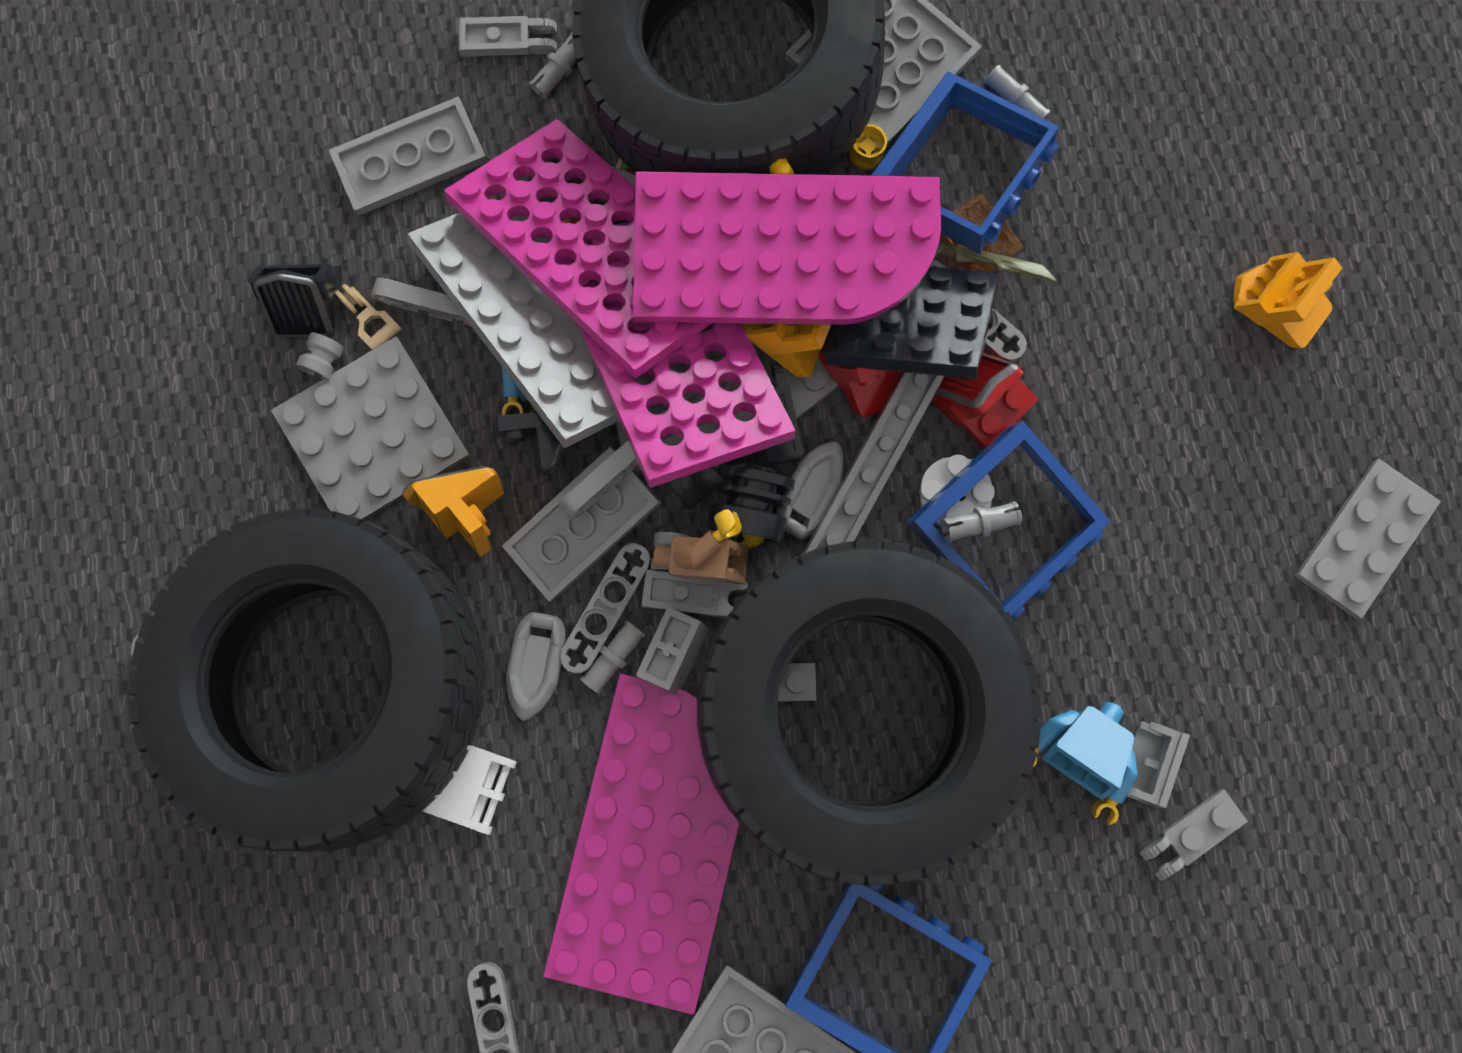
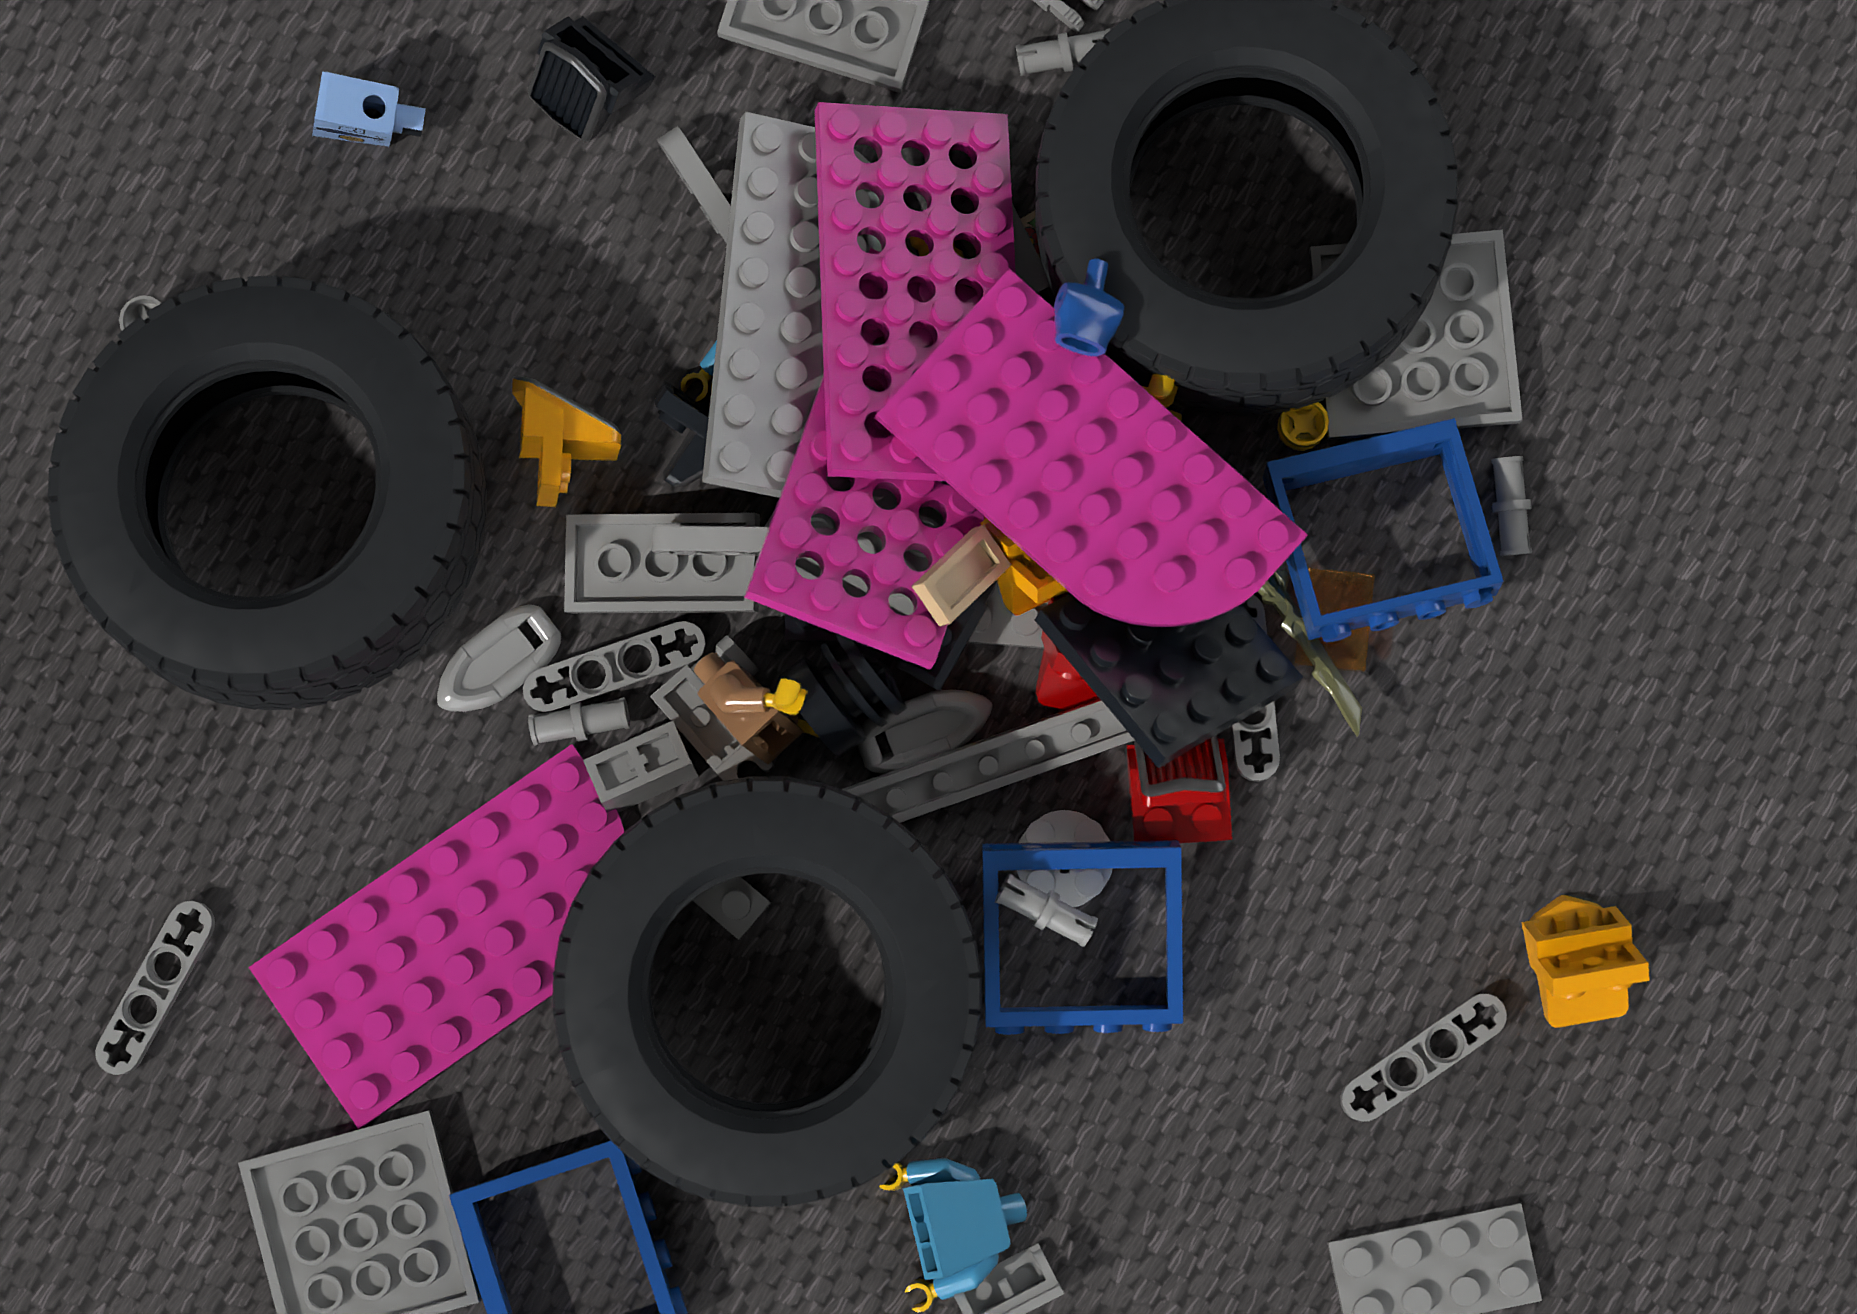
camera: 40 degrees right, 5 degrees up
(181, 420) = (343, 117): none -> light blue torso
(320, 355) = (552, 158): light grey wheel -> none
(370, 432) = (536, 282): light grey plate -> none
(388, 331) = (638, 123): tan piece -> none
(470, 788) = (333, 728): white plate -> none
(704, 155) = (1086, 314): none -> blue piece
(764, 368) = (961, 575): none -> tan tile
(1254, 428) = (1426, 1062): none -> light grey beam

